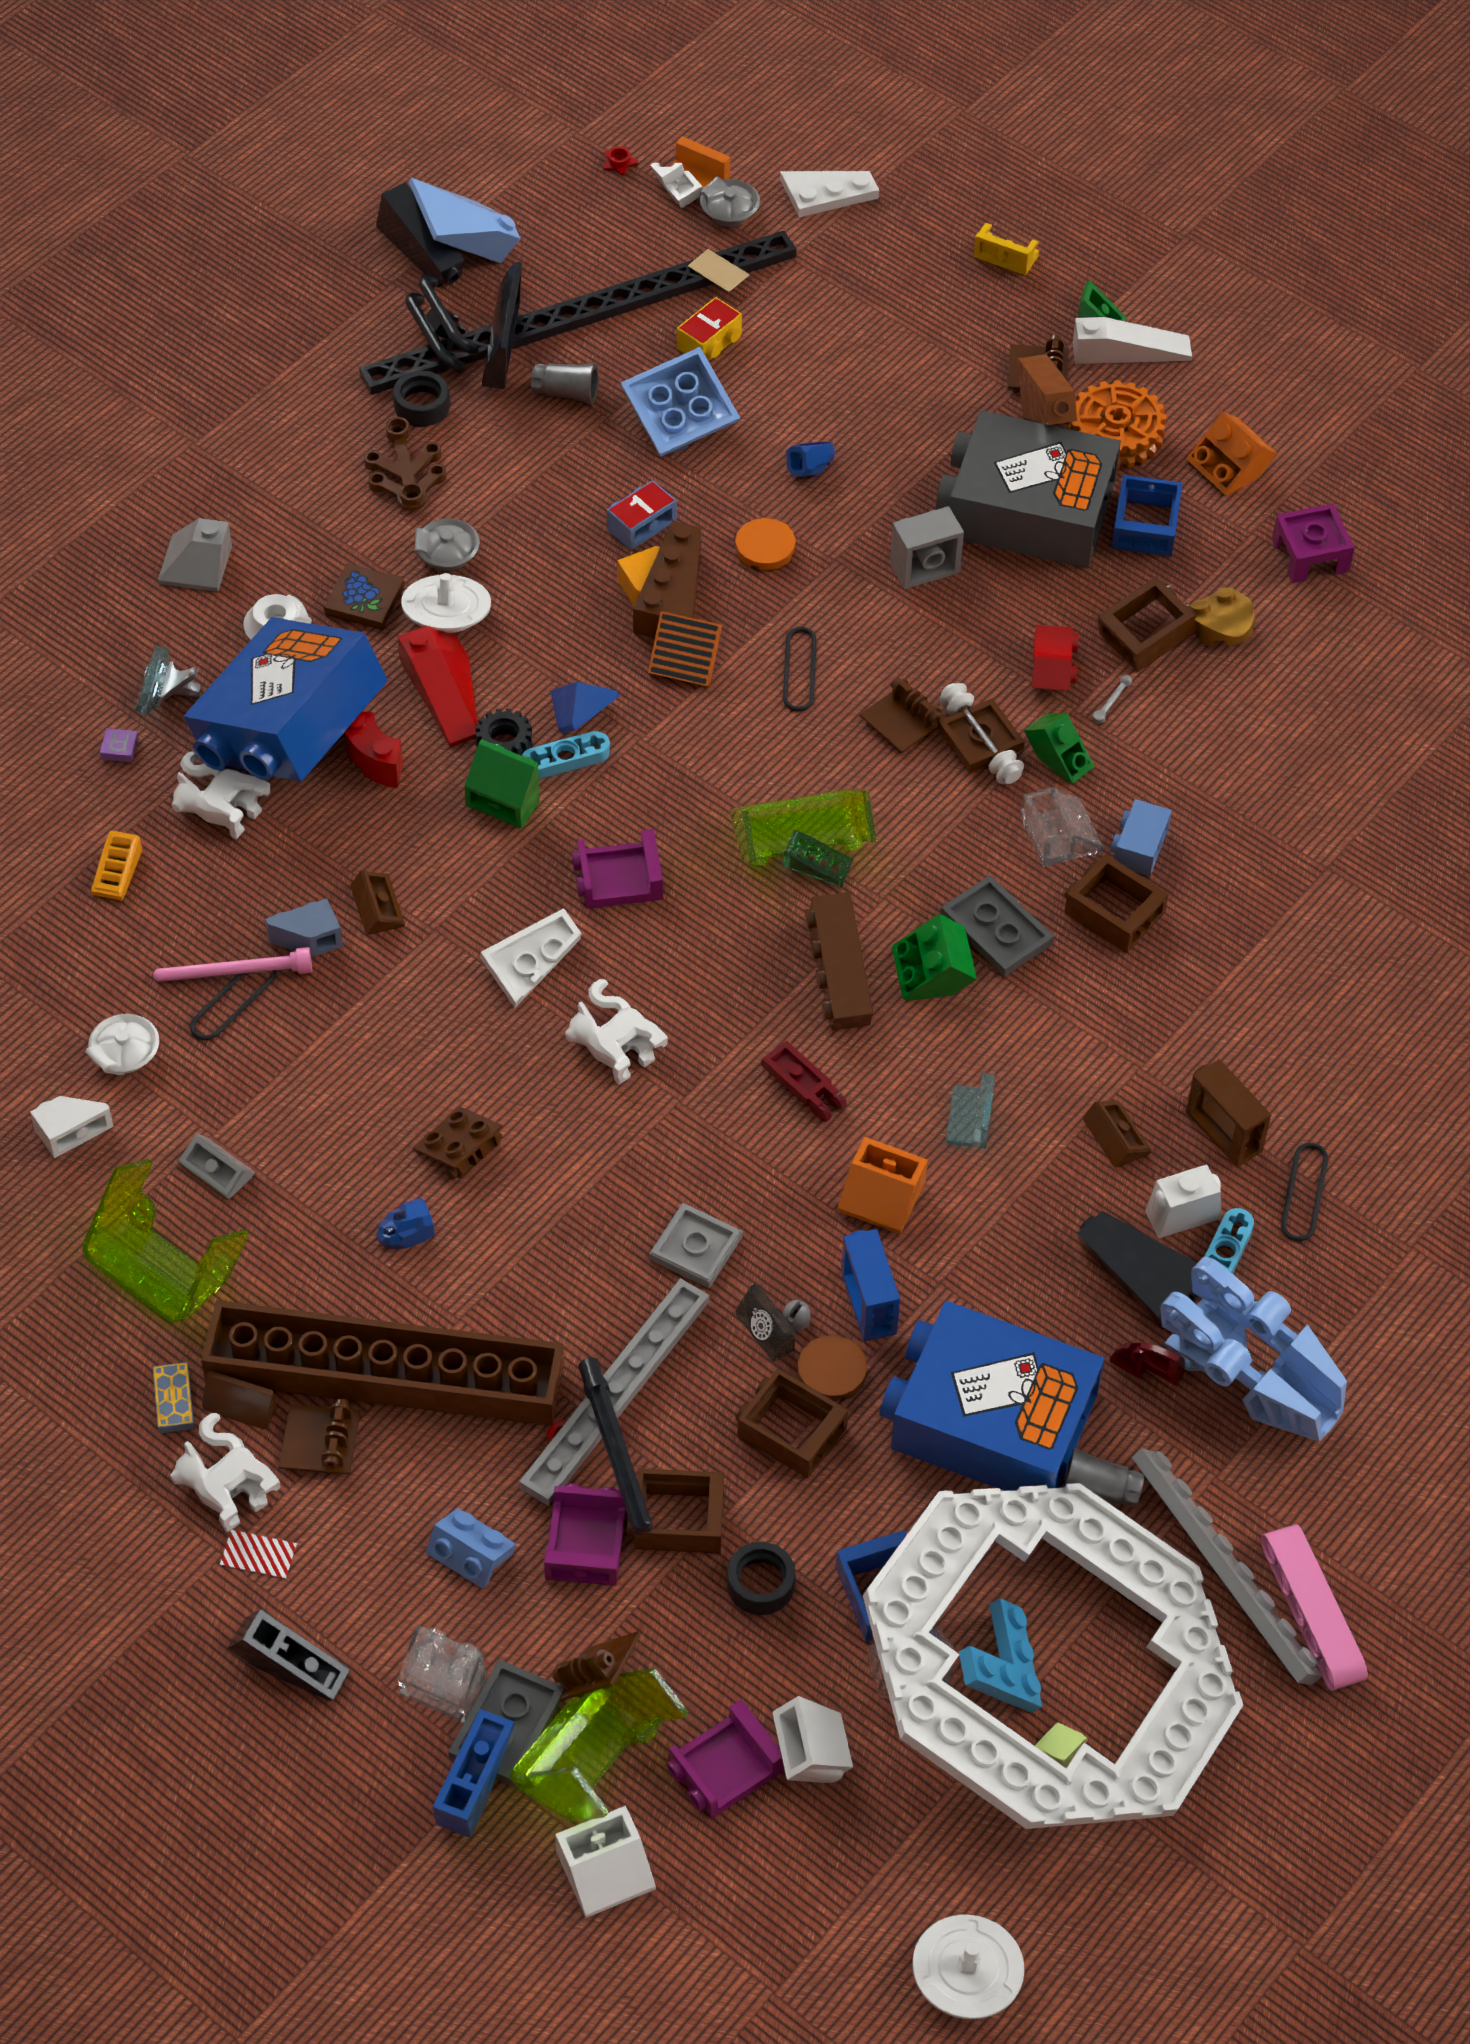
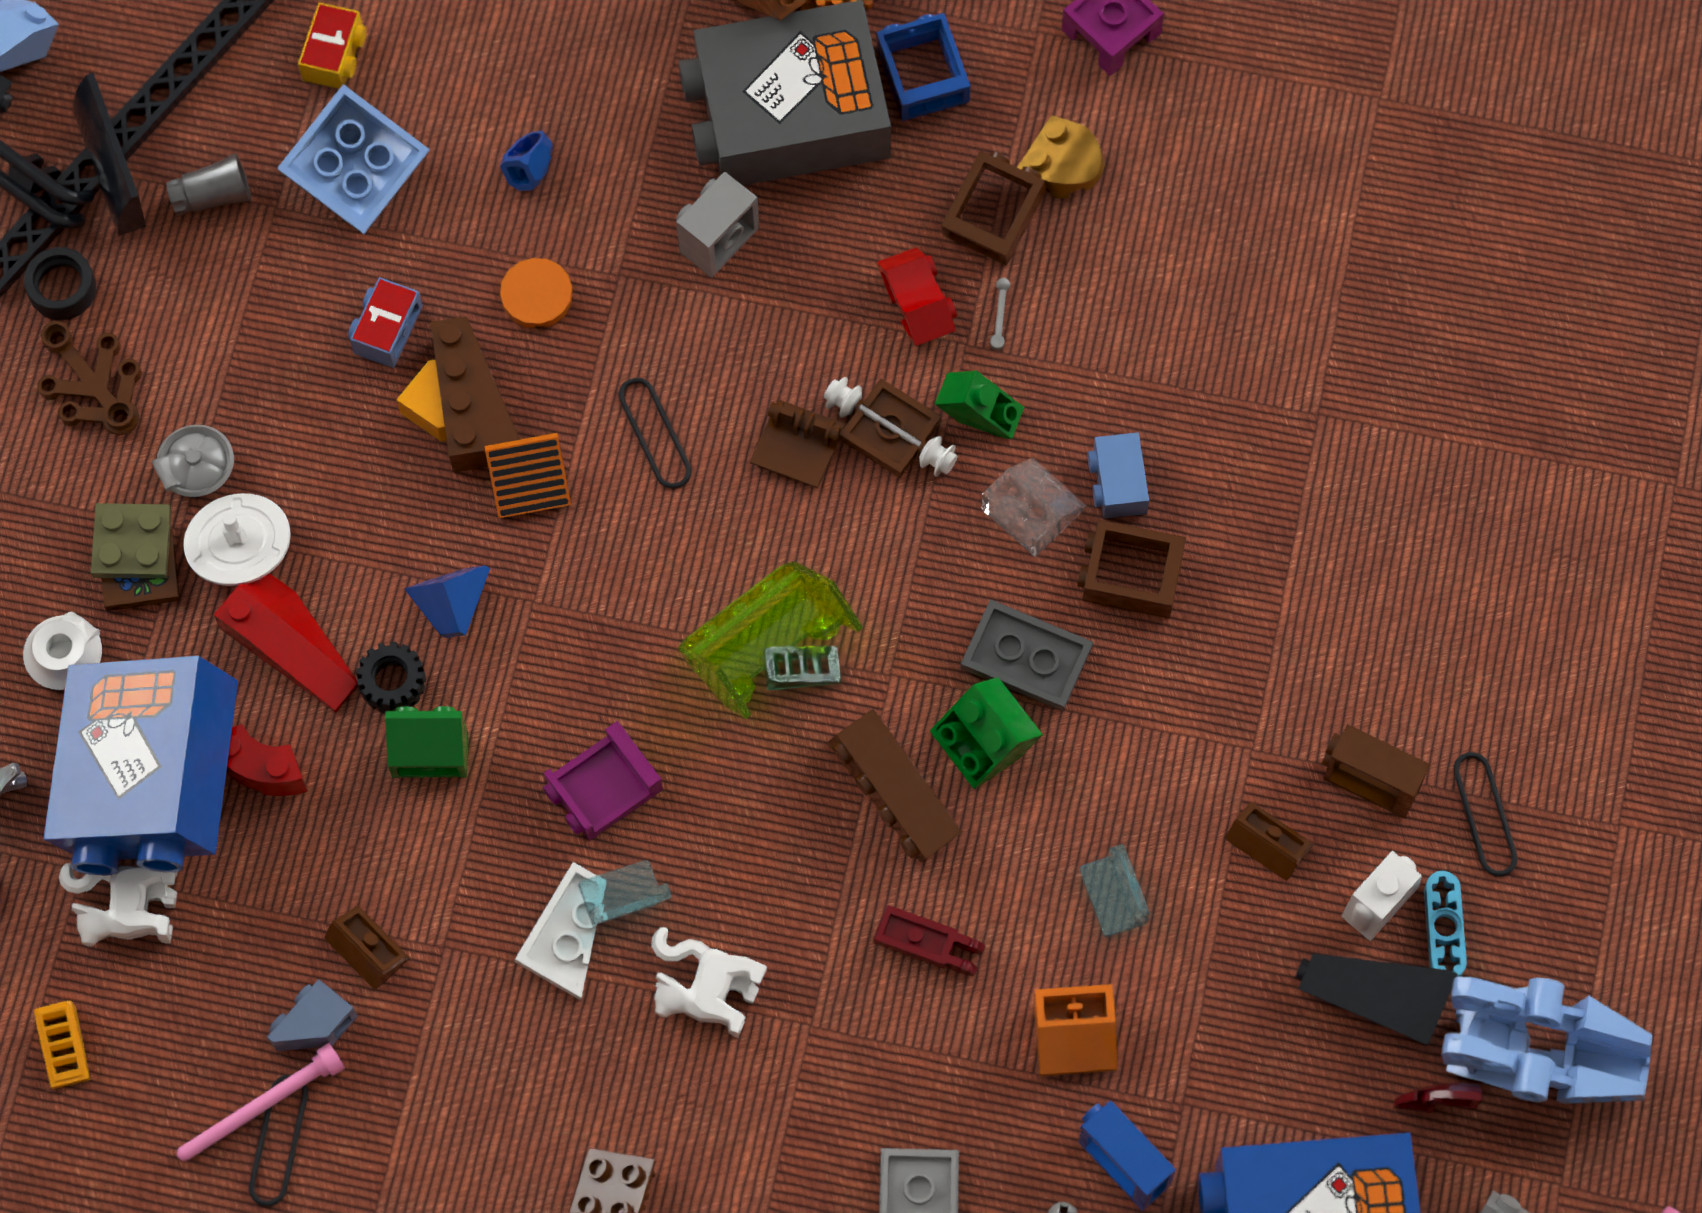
camera: 25 degrees left, 15 degrees up
(369, 572) = (131, 540): none -> olive plate
(573, 744) = (493, 652): medium azure beam -> none
(588, 946) = (622, 892): none -> clear light blue panel

